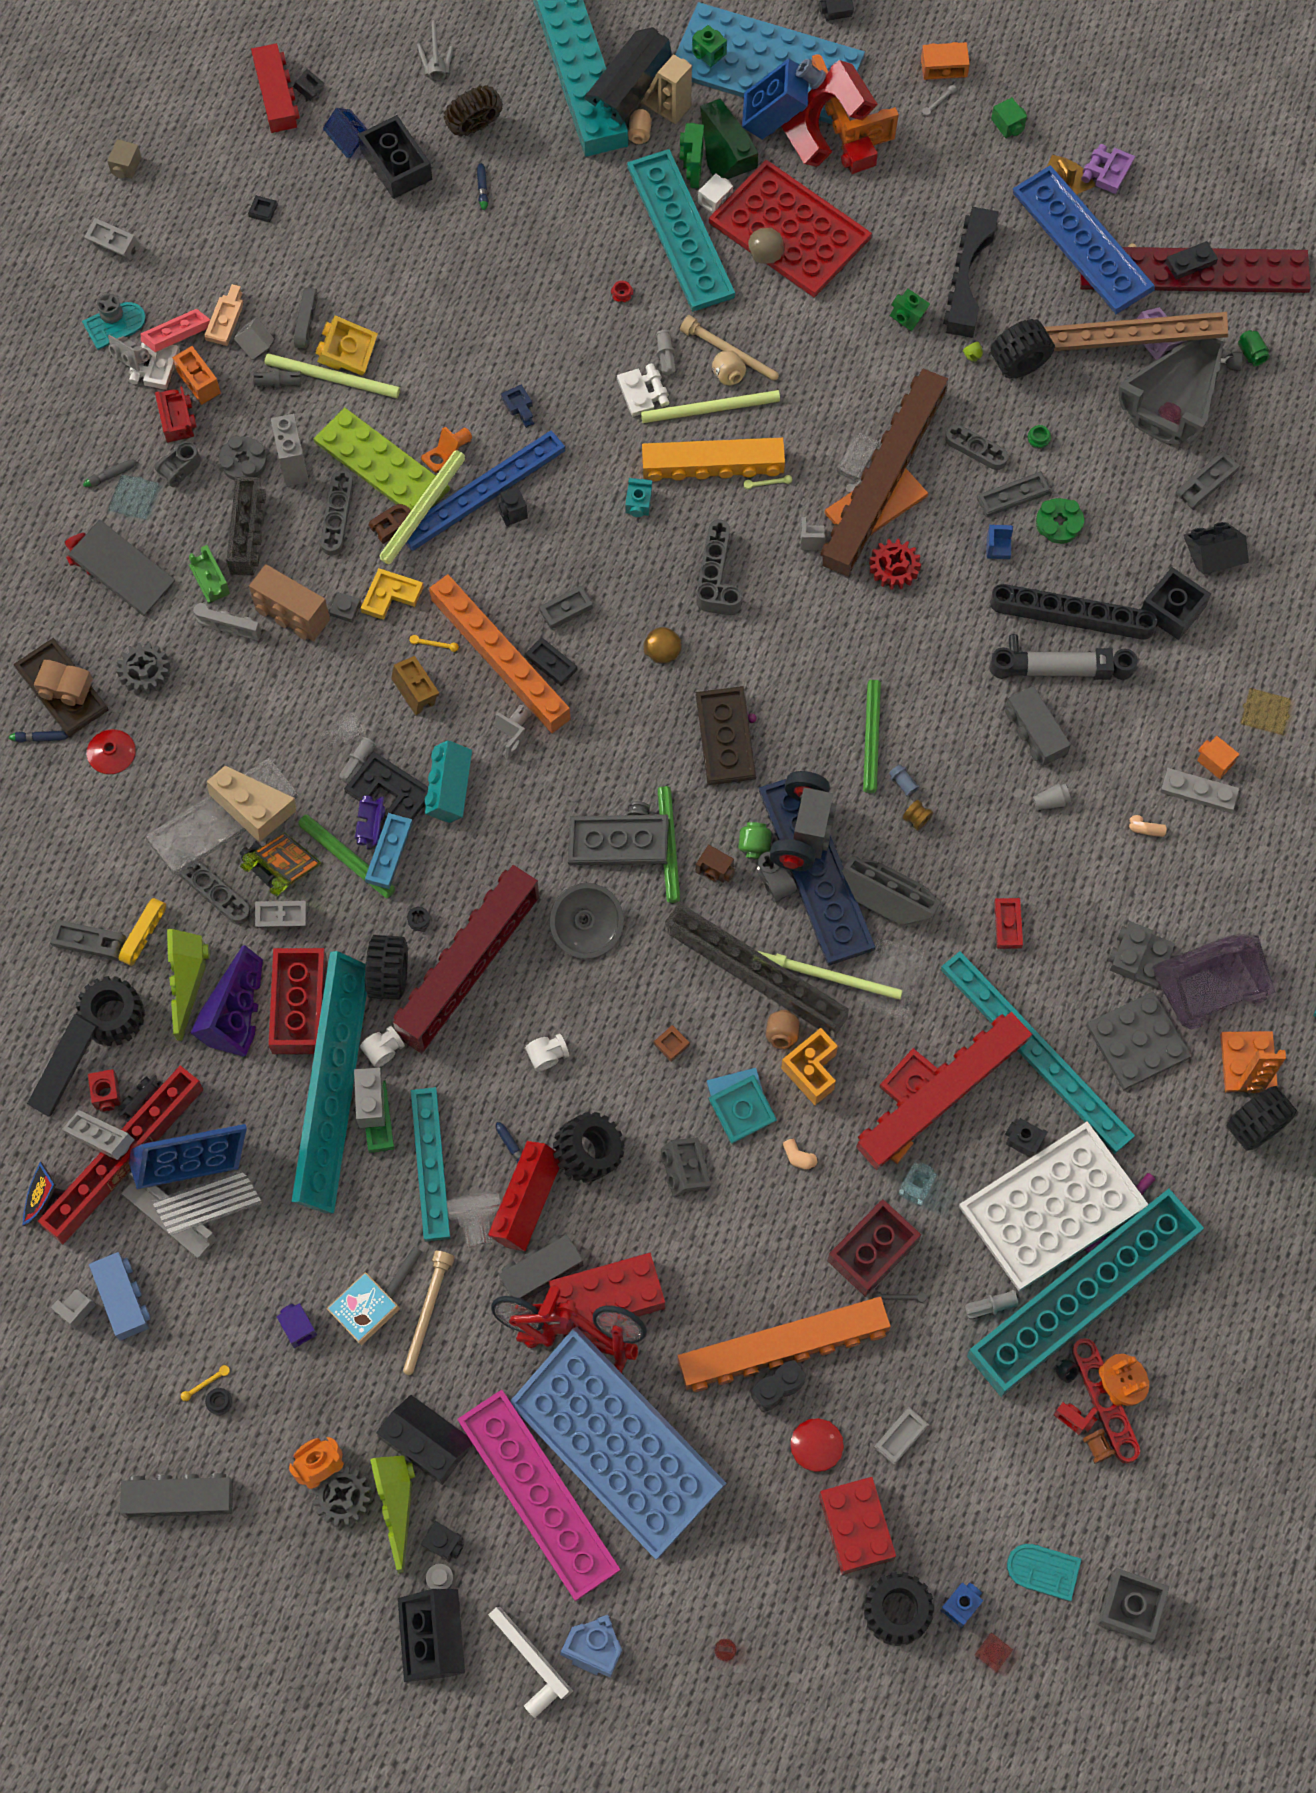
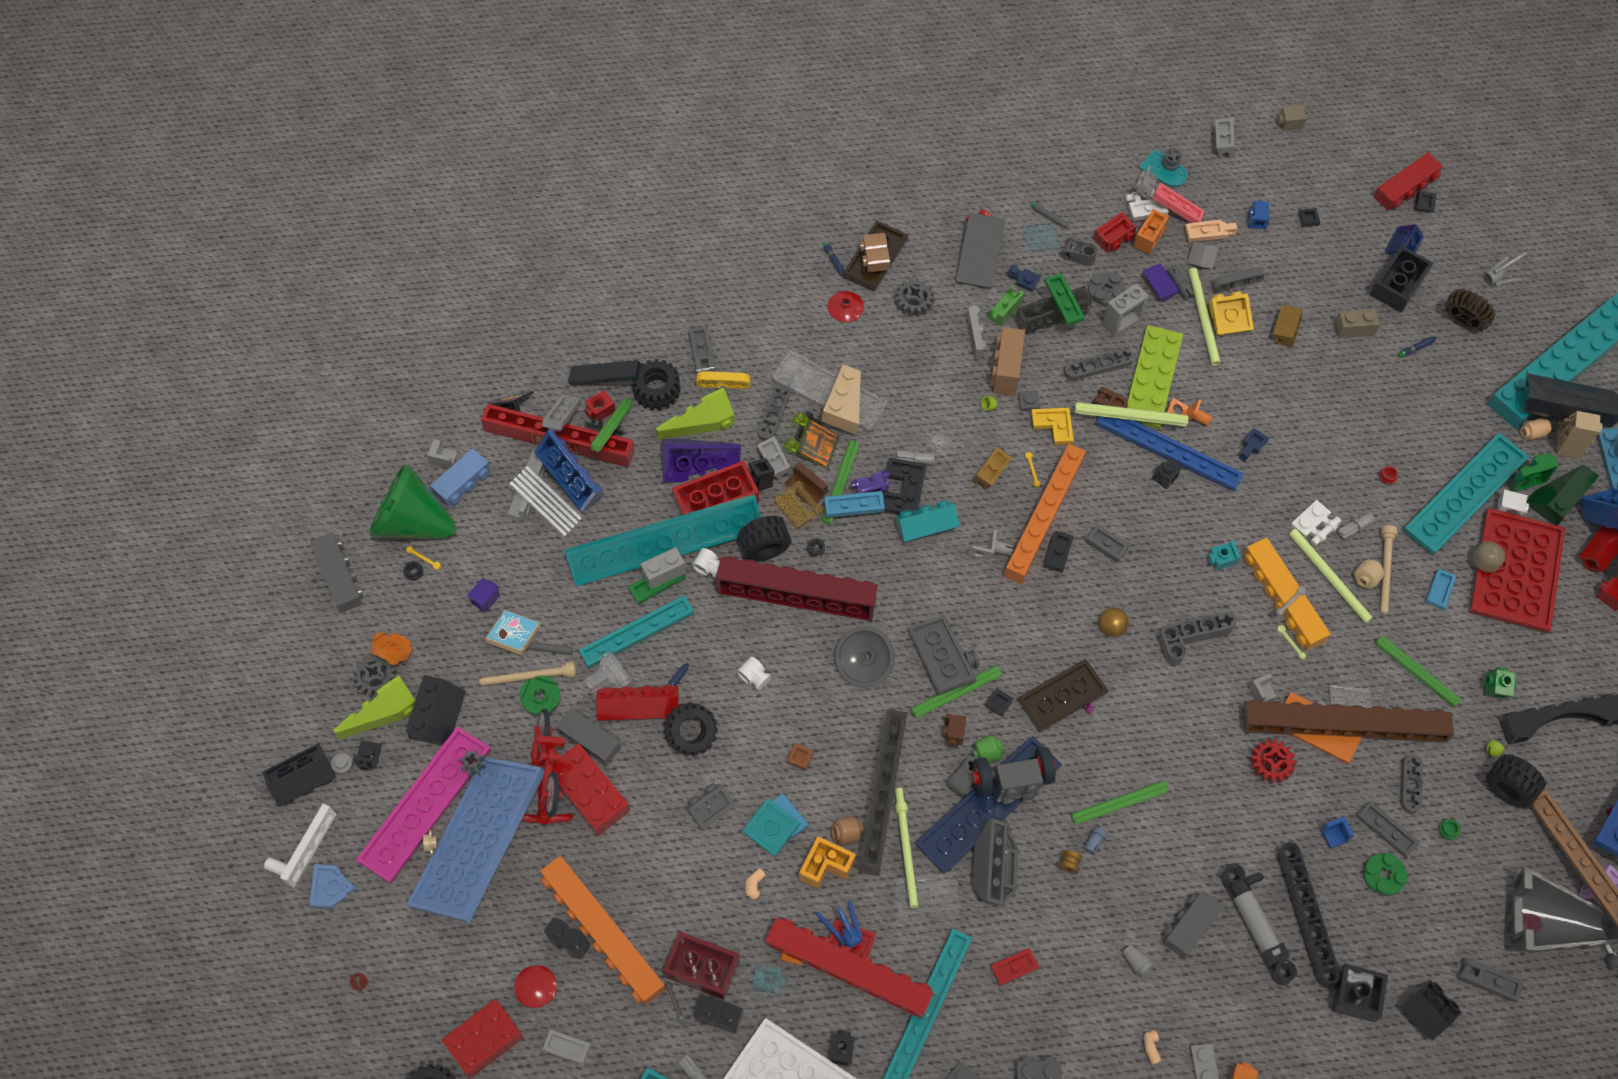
camera: 65 degrees right, 5 degrees down
(138, 1374) = (411, 511): none -> green cone
(146, 1082) = (611, 424): none -> bright green axle
(182, 537) = (1025, 279): none -> dark blue plate
(233, 255) = (1258, 215): none -> blue brick
(245, 505) = (1064, 299): none -> green plate
(265, 397) = (1161, 281): none -> dark purple slope
(304, 939) = (762, 473): none -> black brick
(322, 648) = (988, 400): none -> lime hinge
(332, 895) = (812, 483): none -> reddish brown panel
(355, 921) = (793, 507): none -> clear yellow plate
(391, 297) = (1287, 325): none -> pearl gold hinge
(426, 228) = (1357, 323): none -> dark tan brick
(460, 1292) = (536, 686): none -> green plate
(518, 1422) = (469, 759): none -> dark grey gear
(593, 1503) = (429, 842): none -> tan plate
(703, 804) = (999, 702): none -> black plate
(721, 441) = (1301, 591): none -> light grey hinge
(776, 310) = (1441, 589): none -> dark azure tile
(857, 379) = (1418, 671): none -> bright green axle
(907, 1073) = (851, 936): none -> blue plant
(935, 1252) = (718, 1014): none -> black brick

